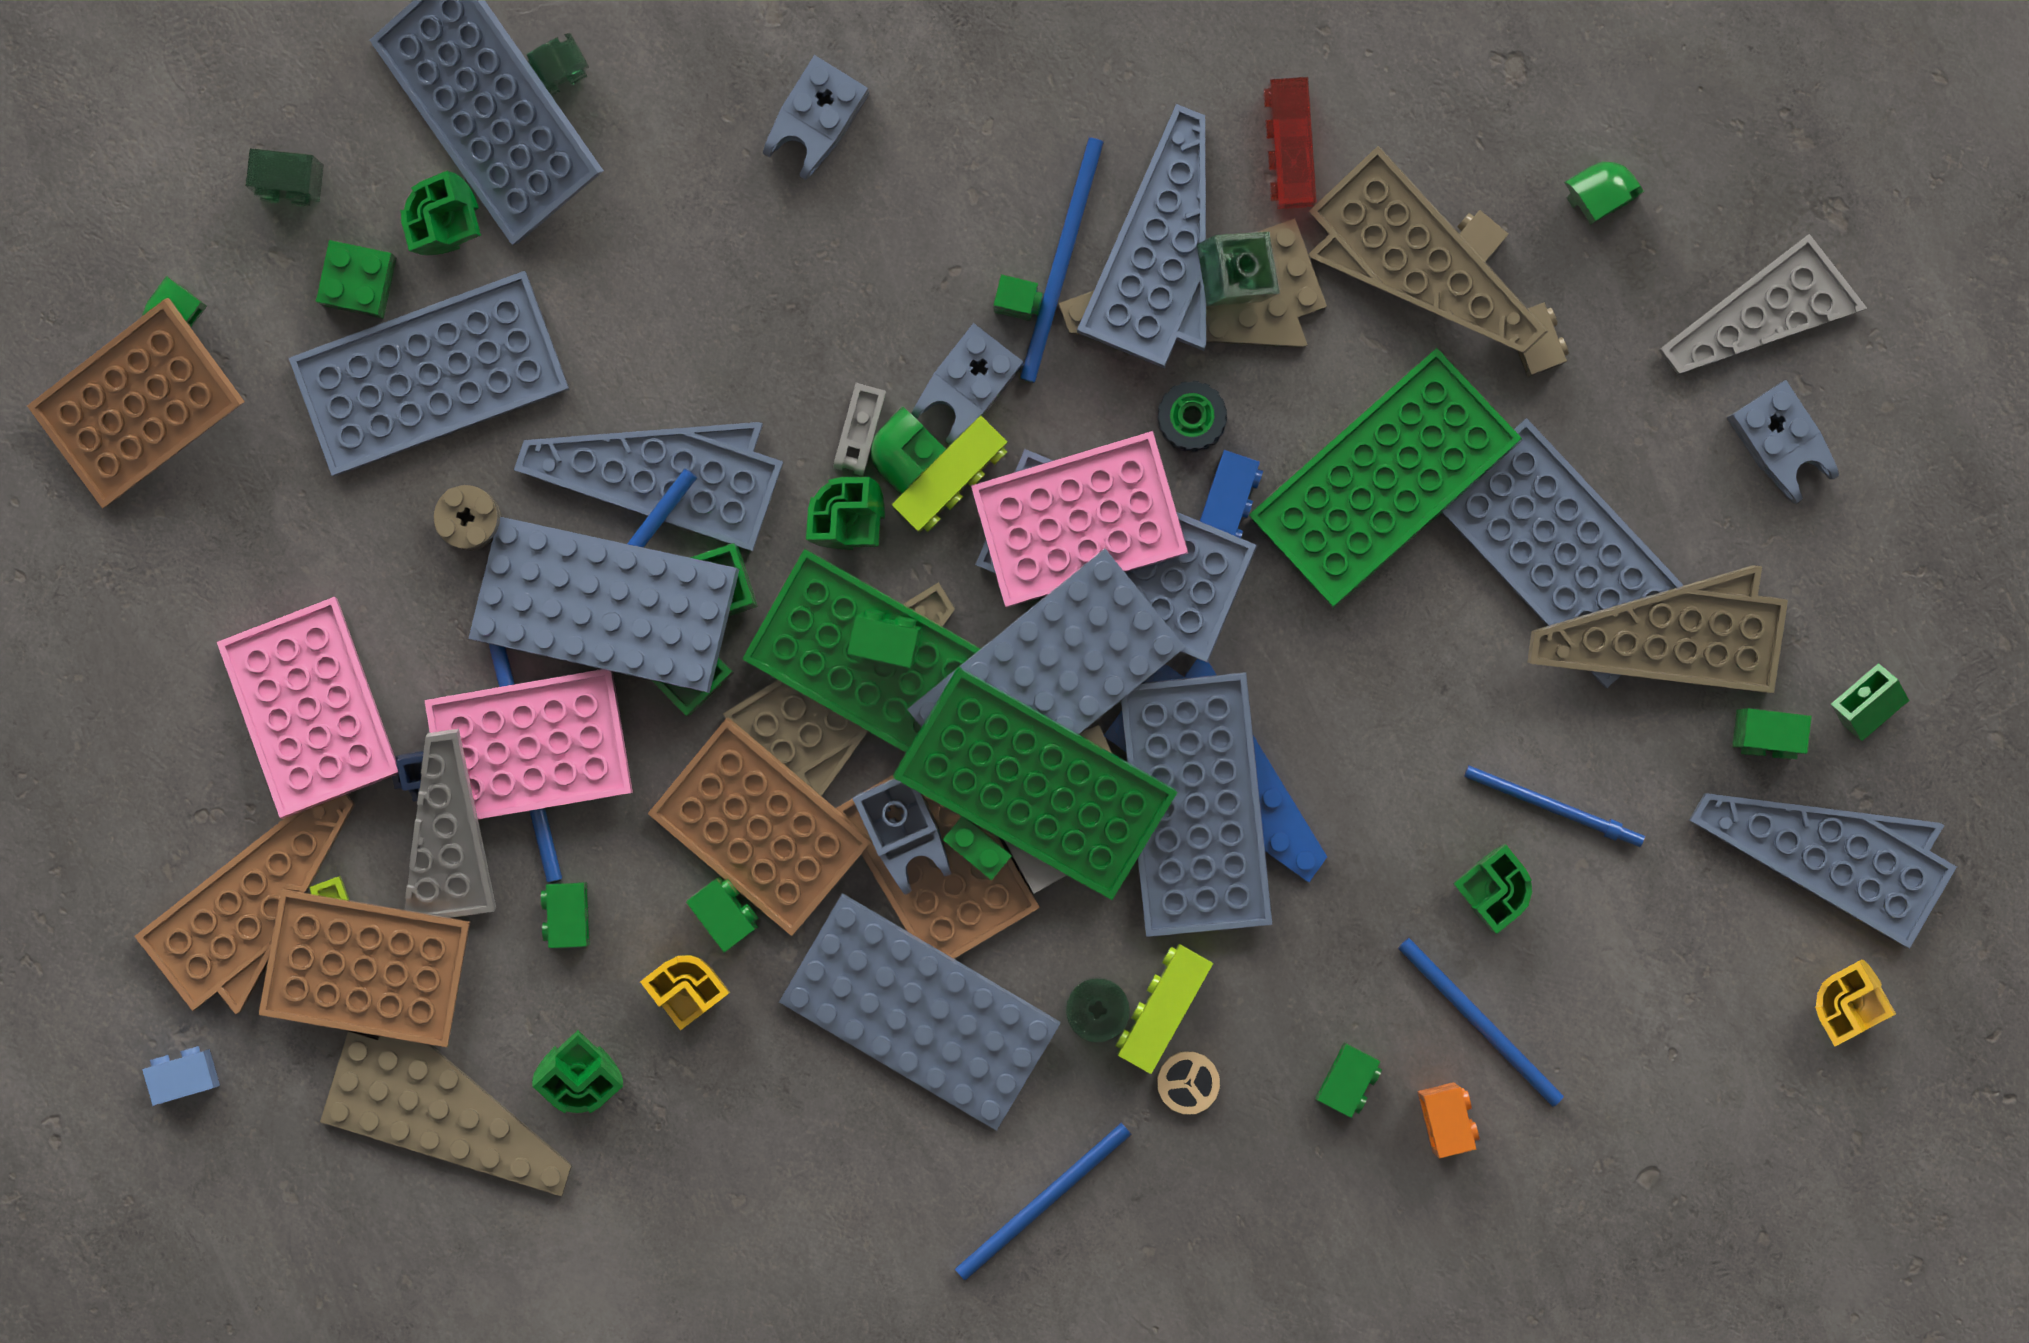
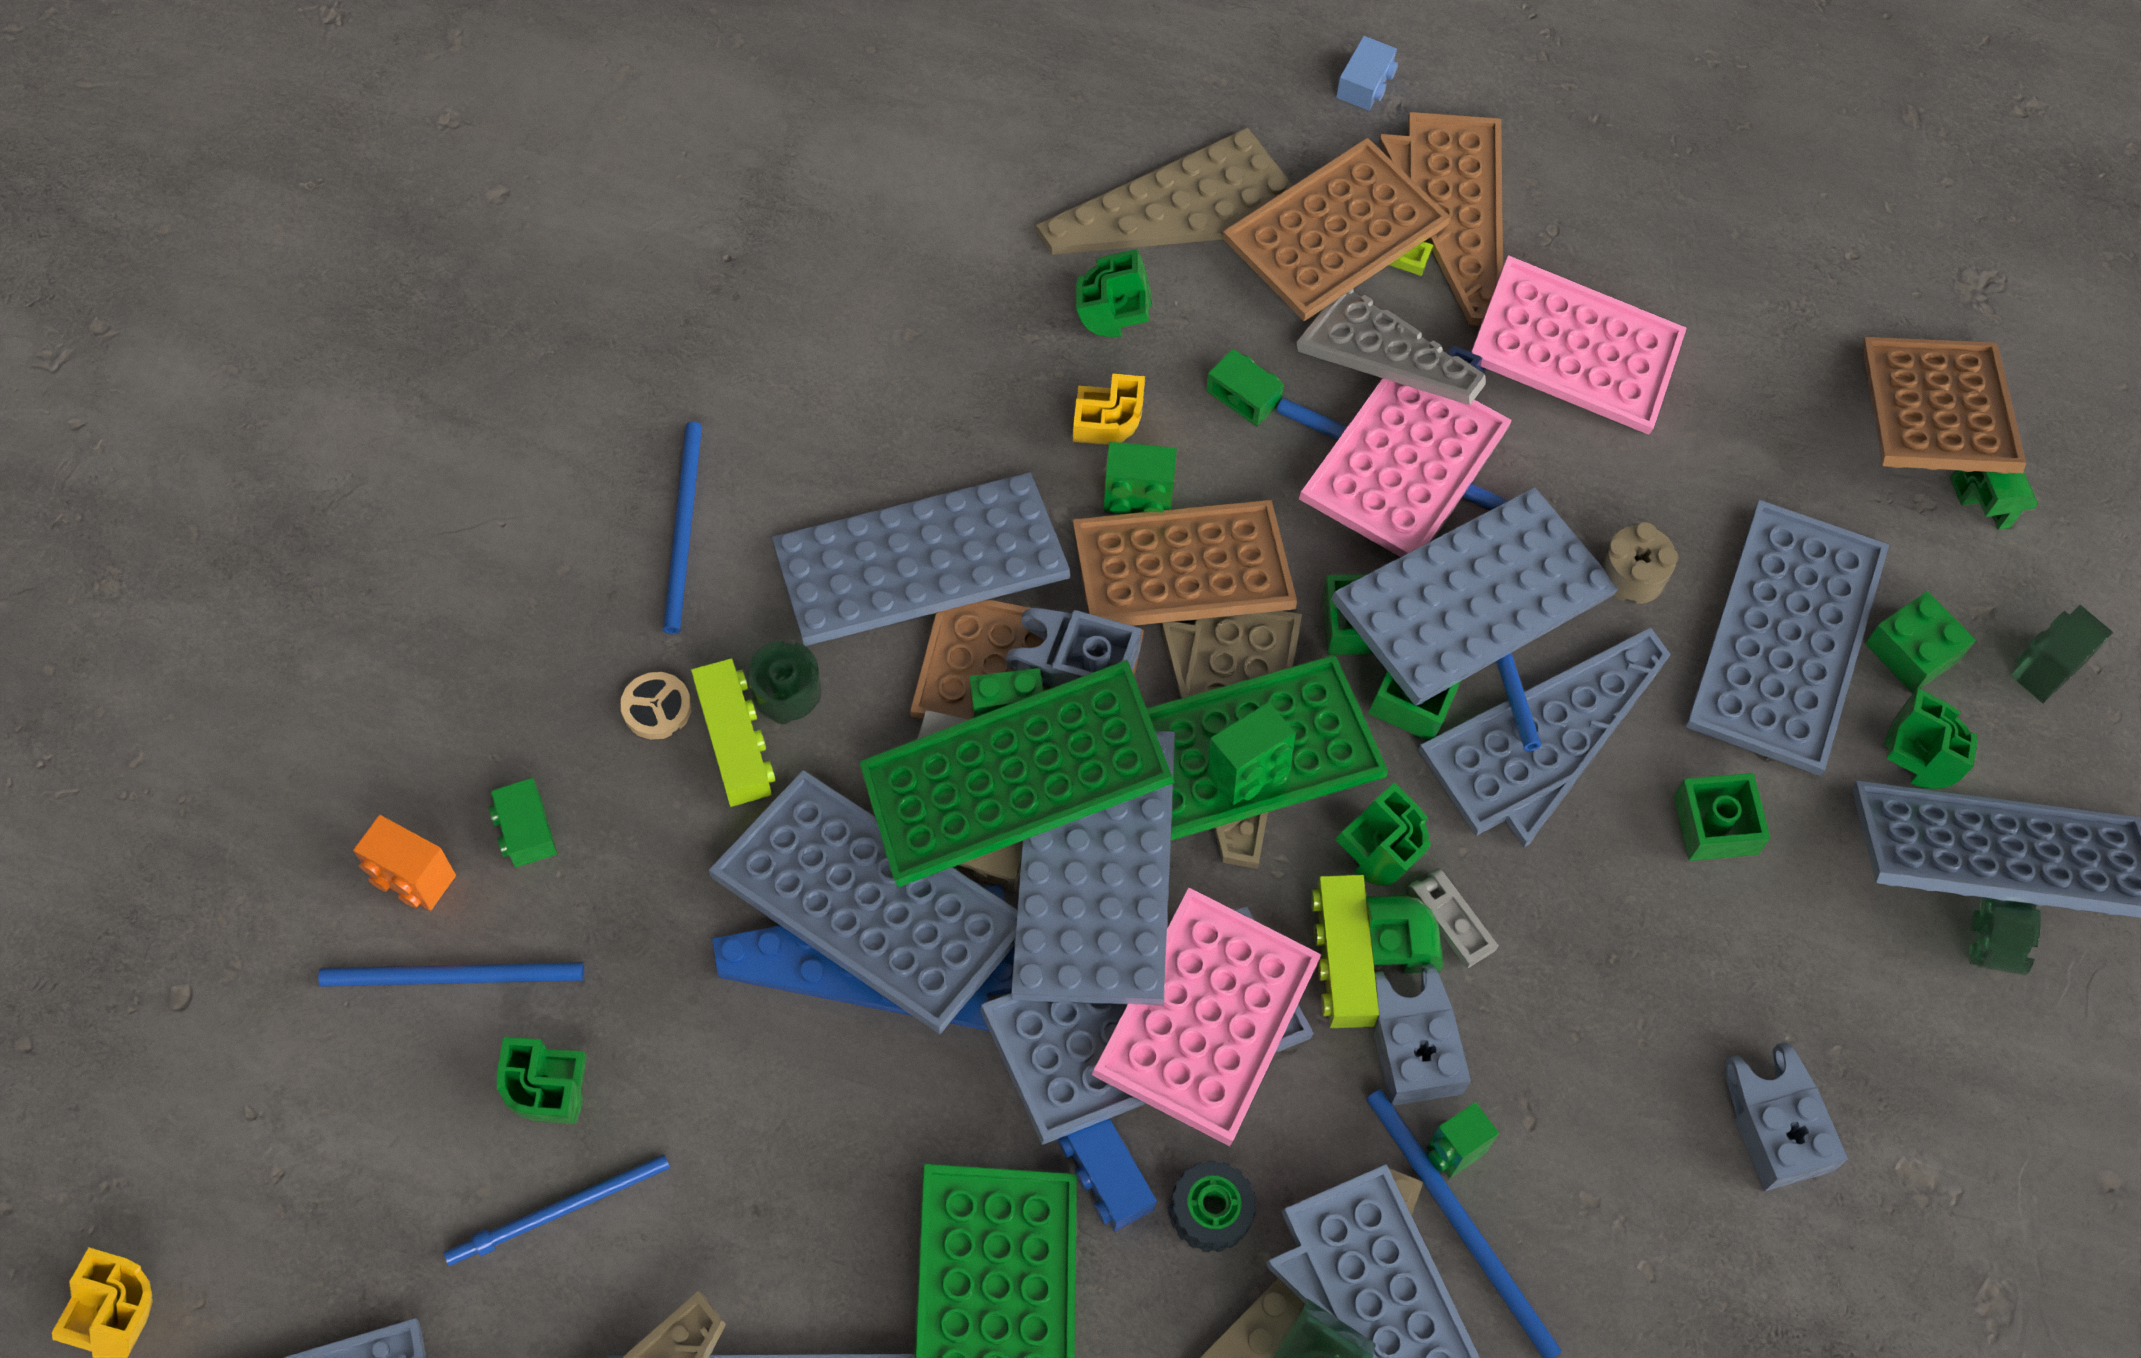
camera: 130 degrees right, 25 degrees down
(628, 310) = (1721, 817): none -> green brick

